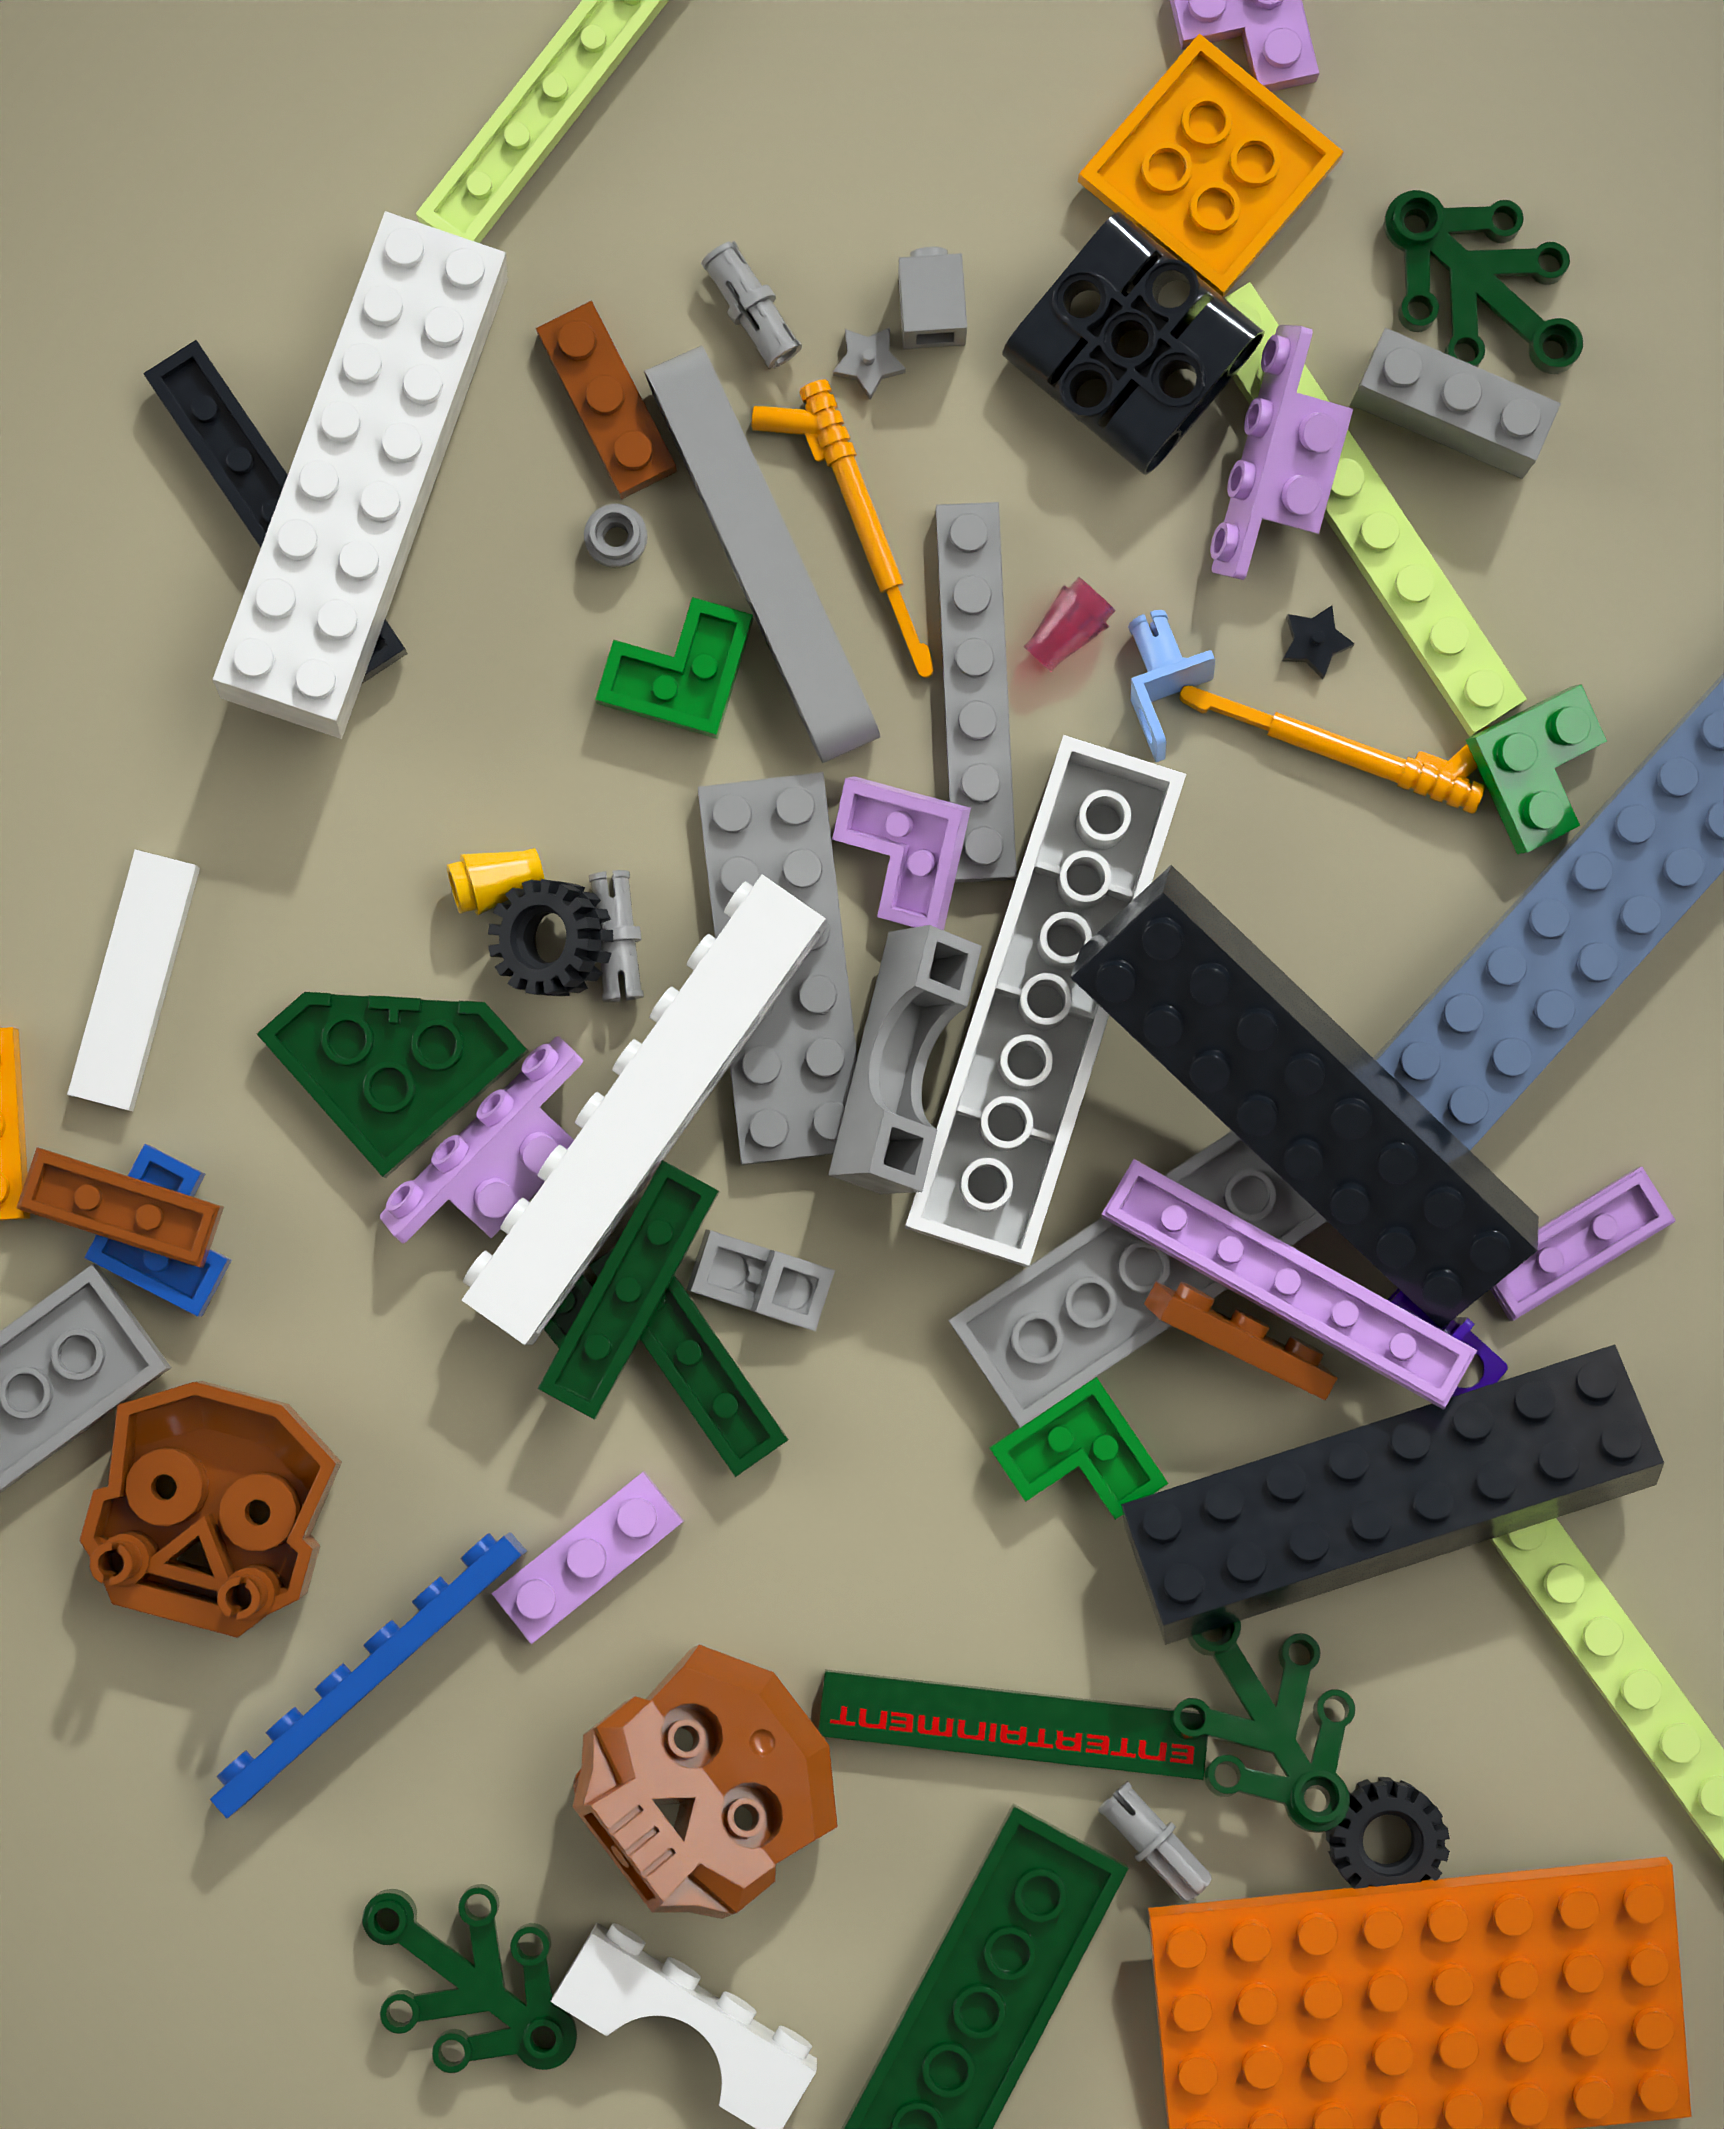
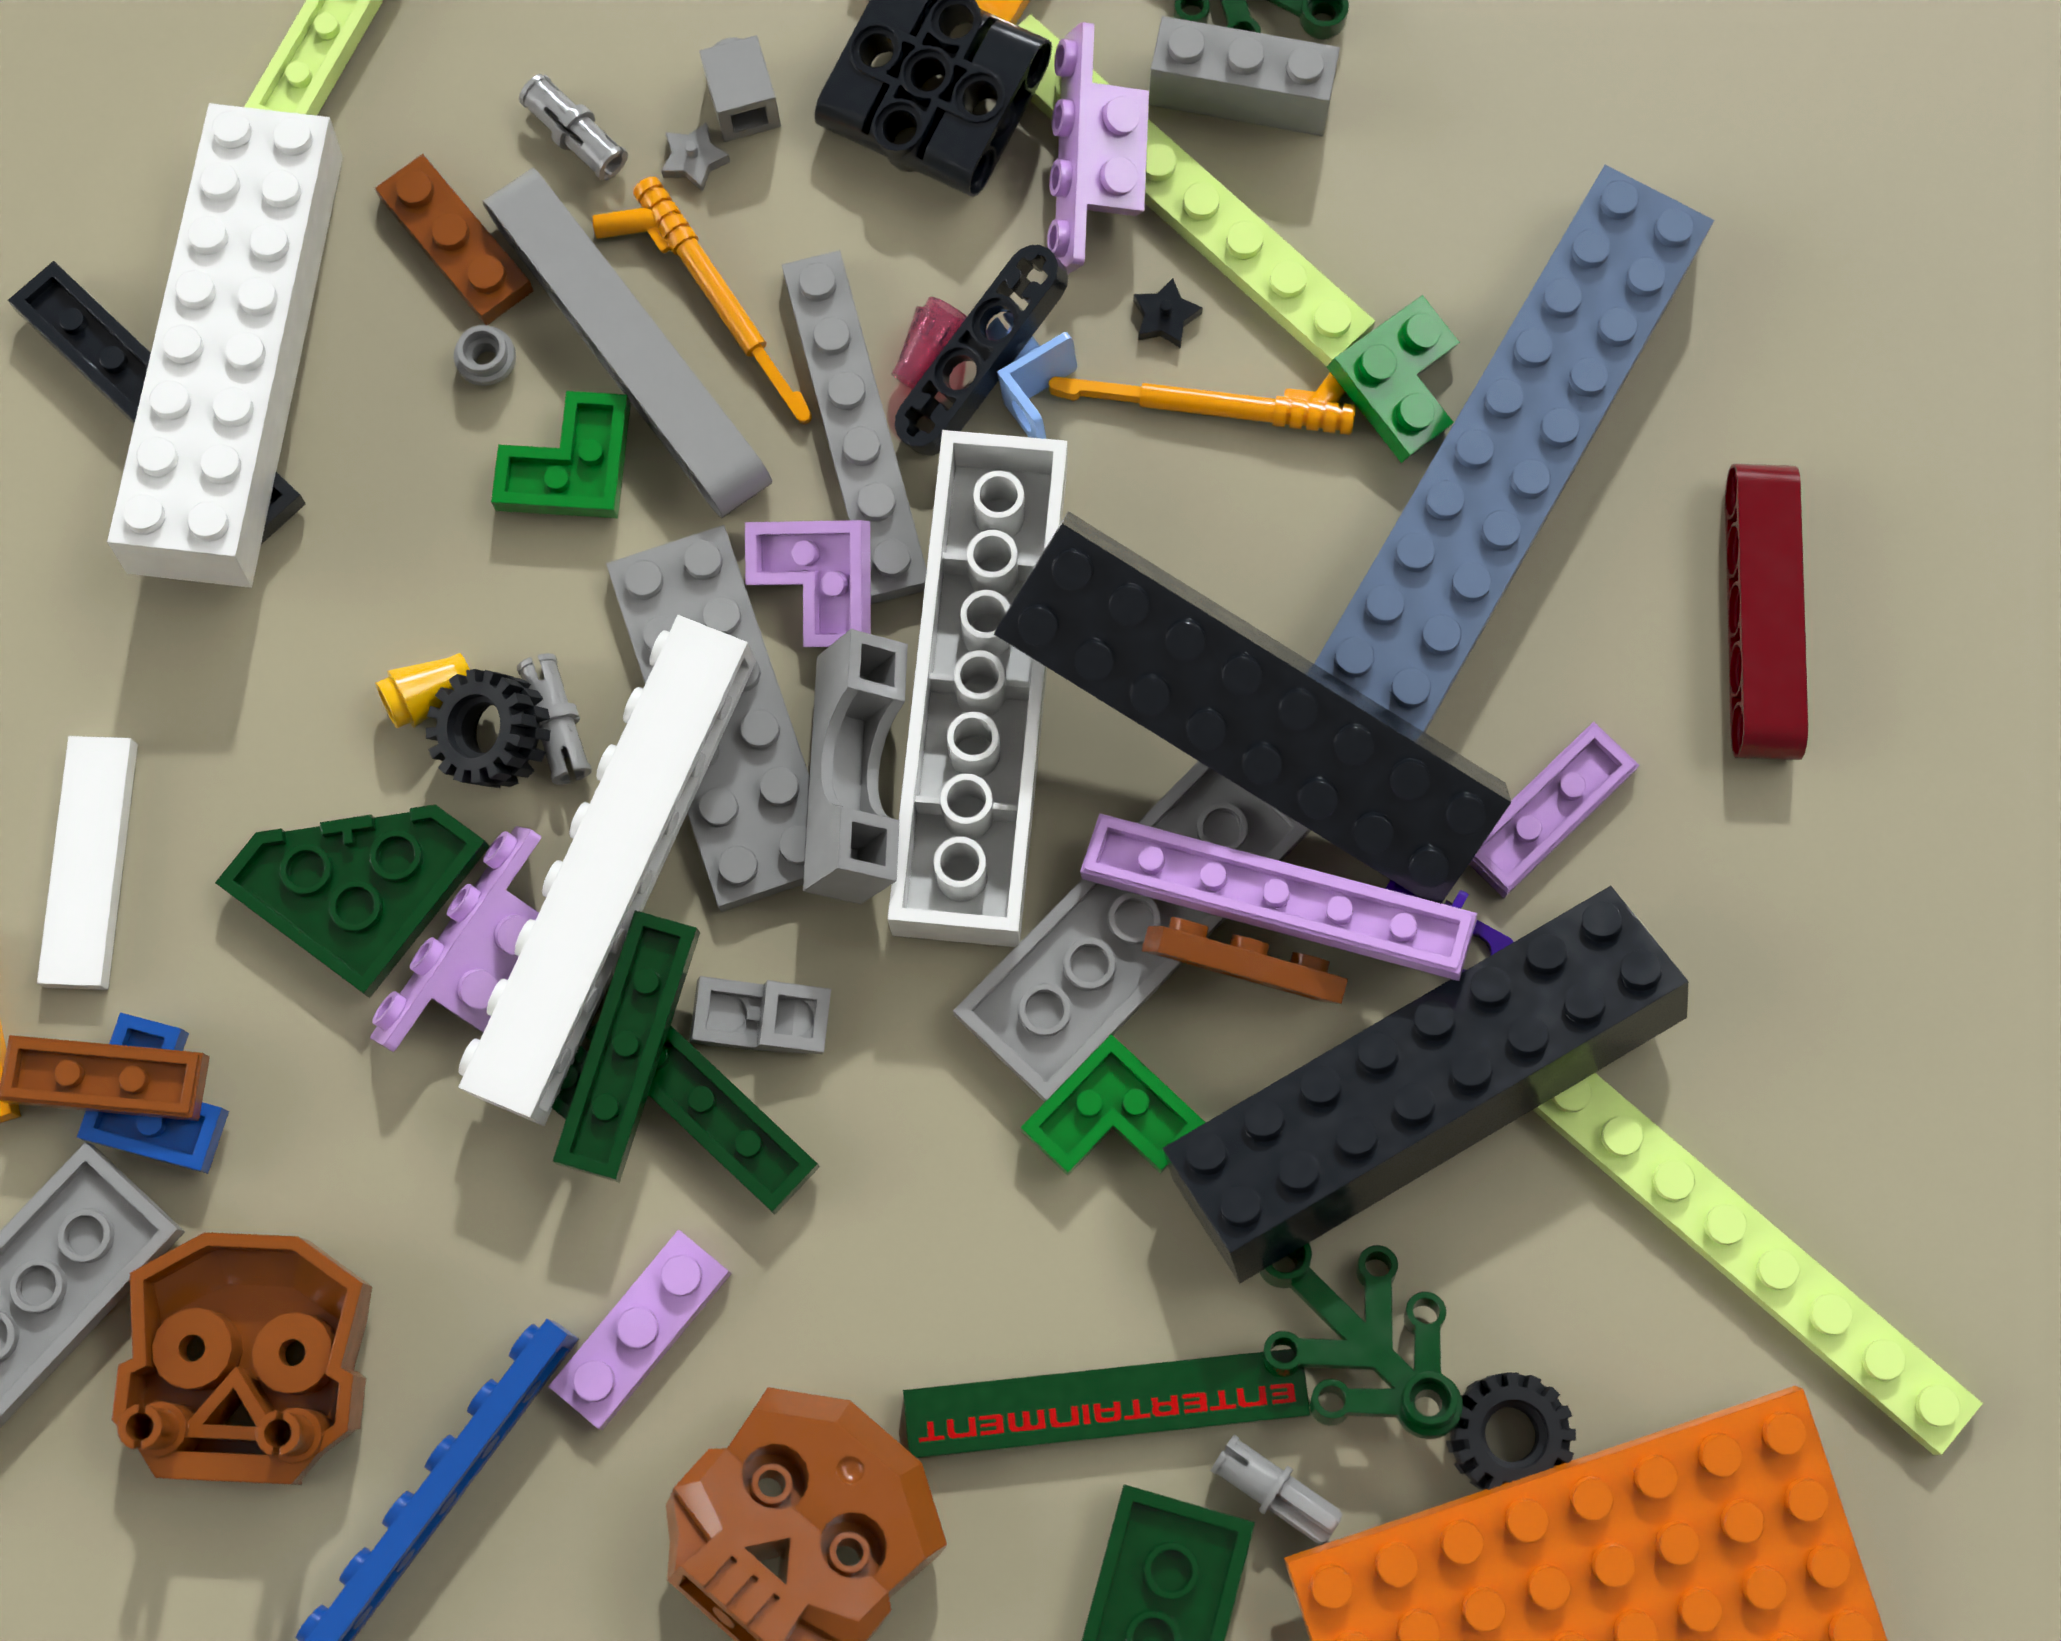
camera: 10 degrees left, 10 degrees down
(1113, 639) = (972, 344): none -> black beam

